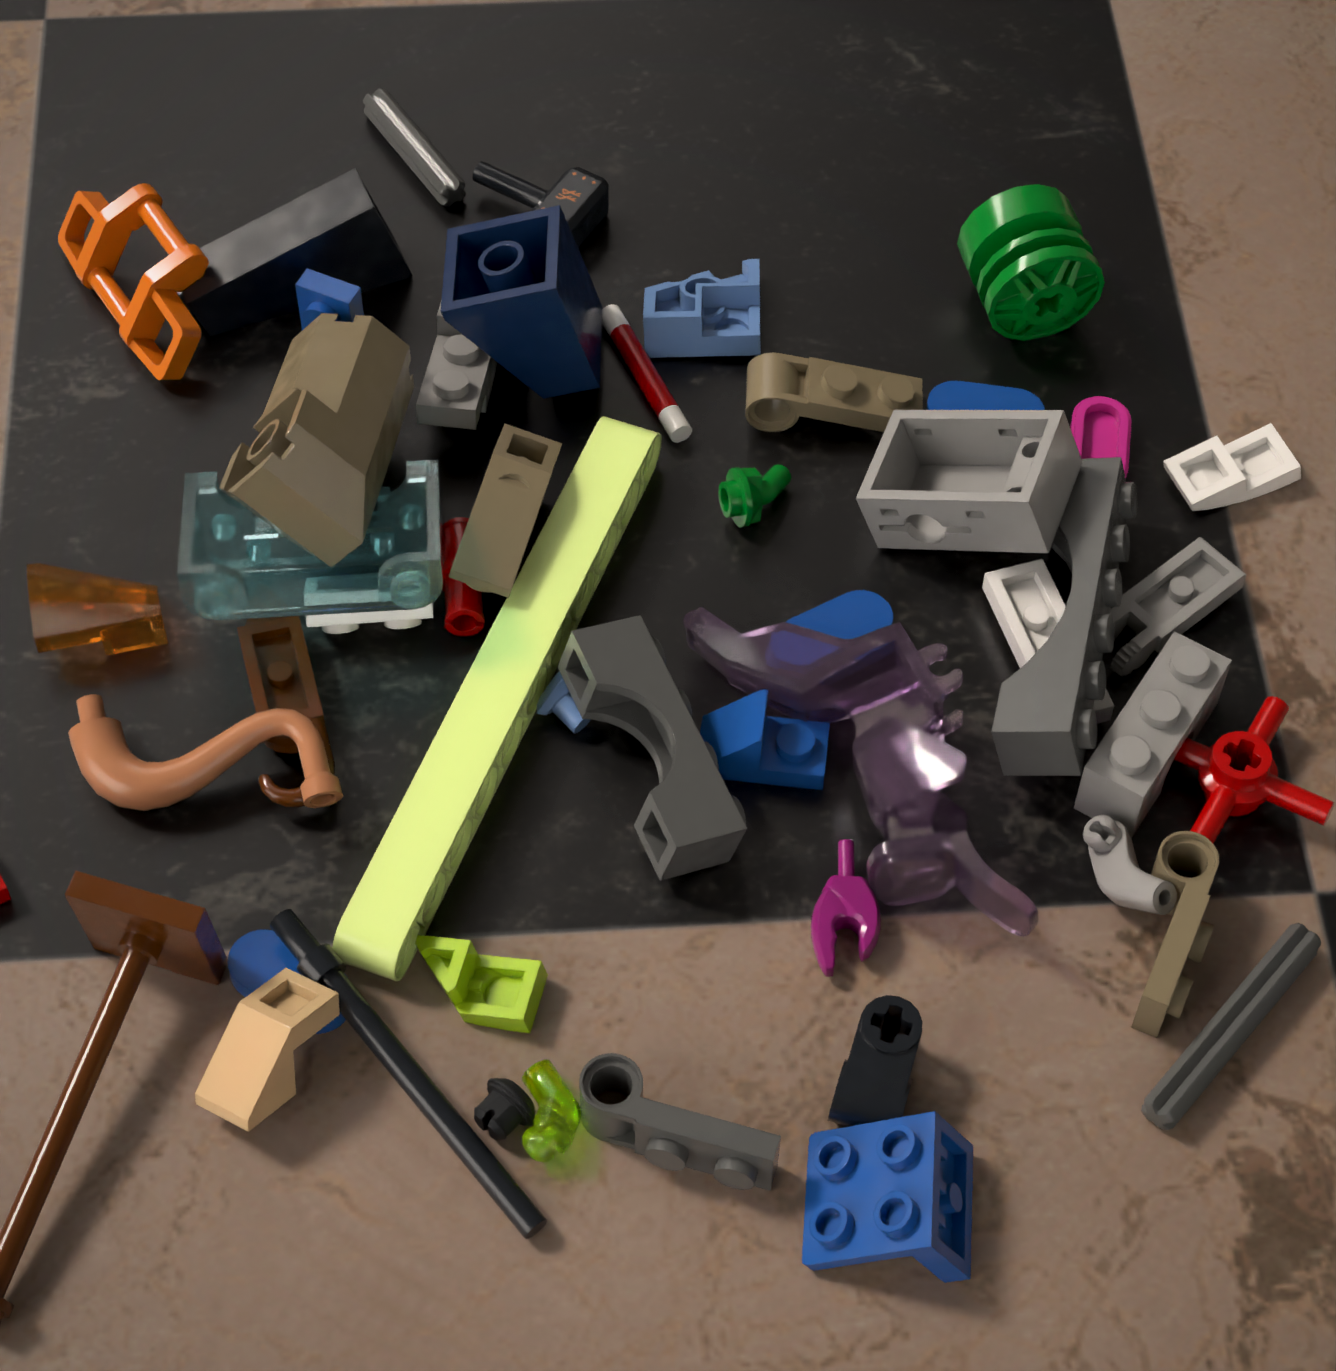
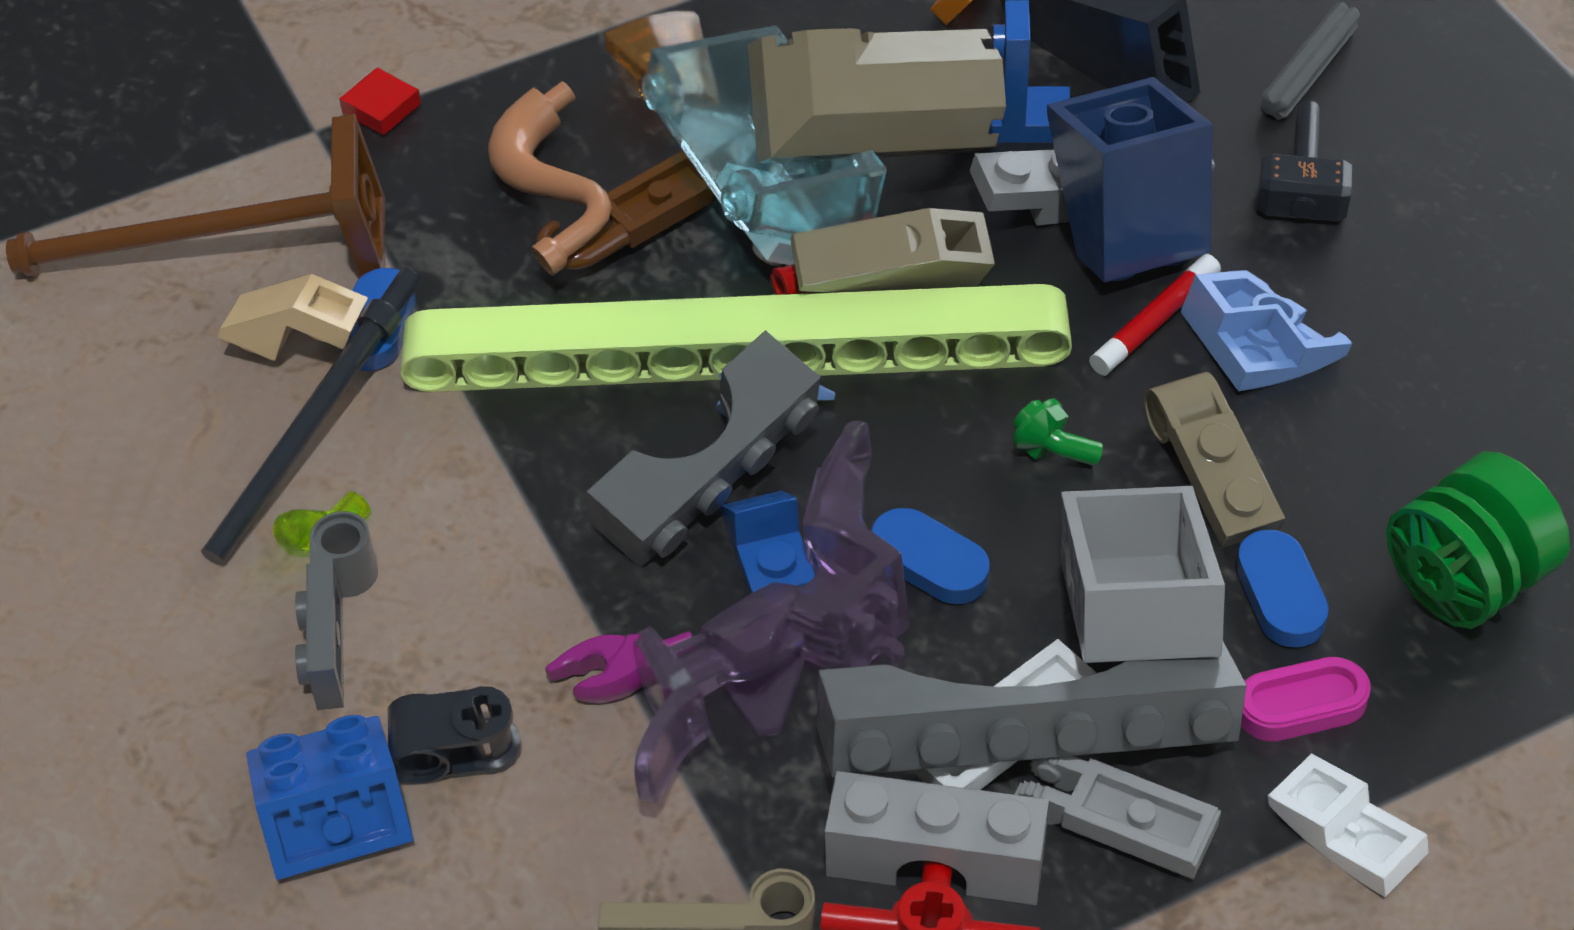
camera: 70 degrees right, 5 degrees down
(485, 987) = (427, 439): lime slope -> none
(504, 1108) = (311, 490): black piece -> none
(1119, 871) = (794, 851): light grey arm -> none

